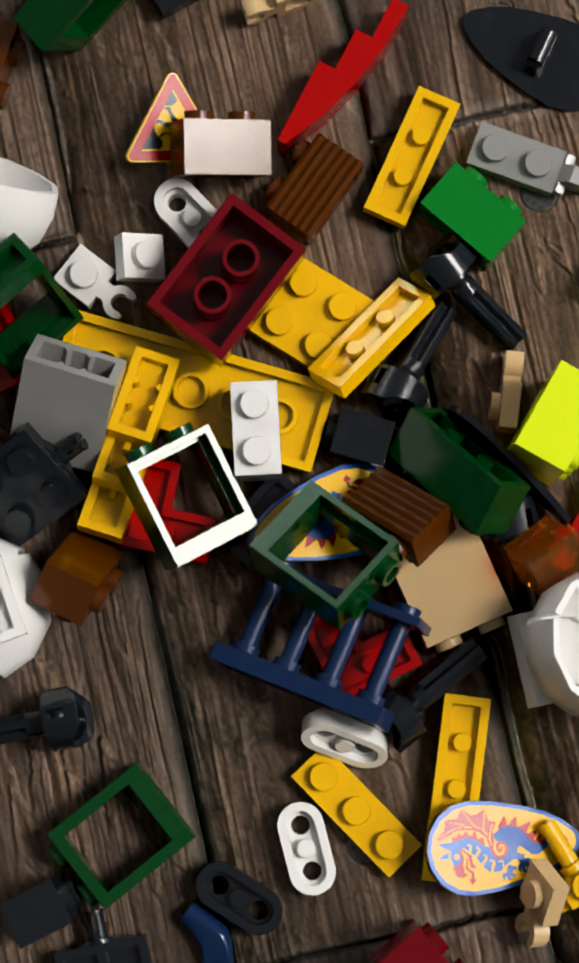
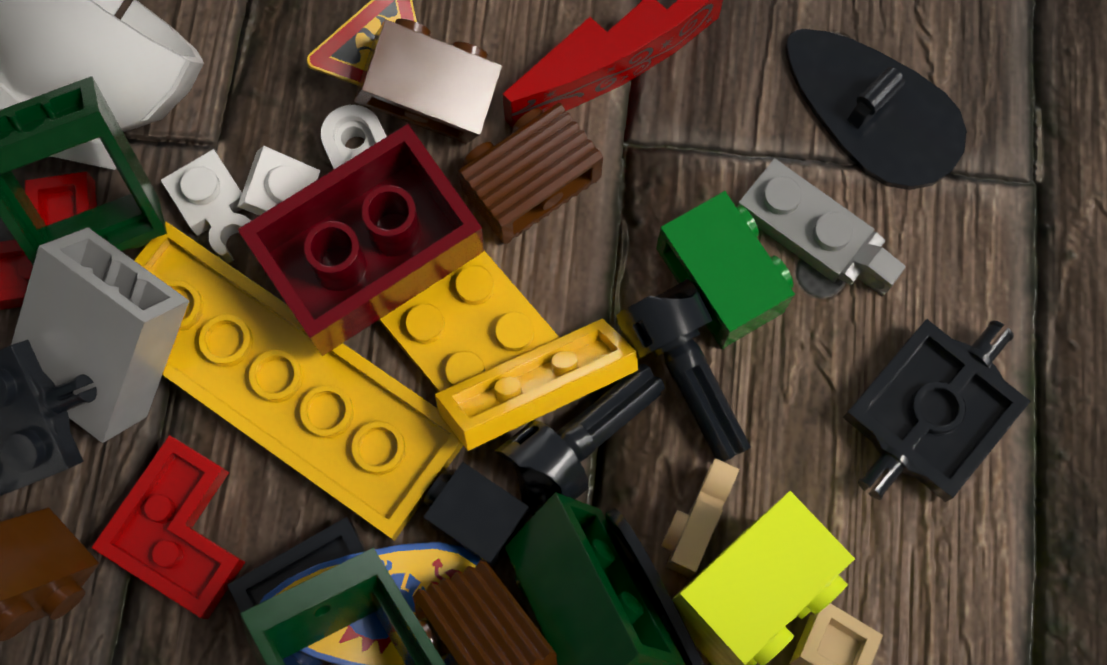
camera: 20 degrees right, 10 degrees down
(132, 424) = (157, 420): yellow slope -> none
(221, 478) = (157, 437): window -> none
(256, 430) = (329, 454): white brick -> none
(411, 157) = (669, 175): yellow plate -> none

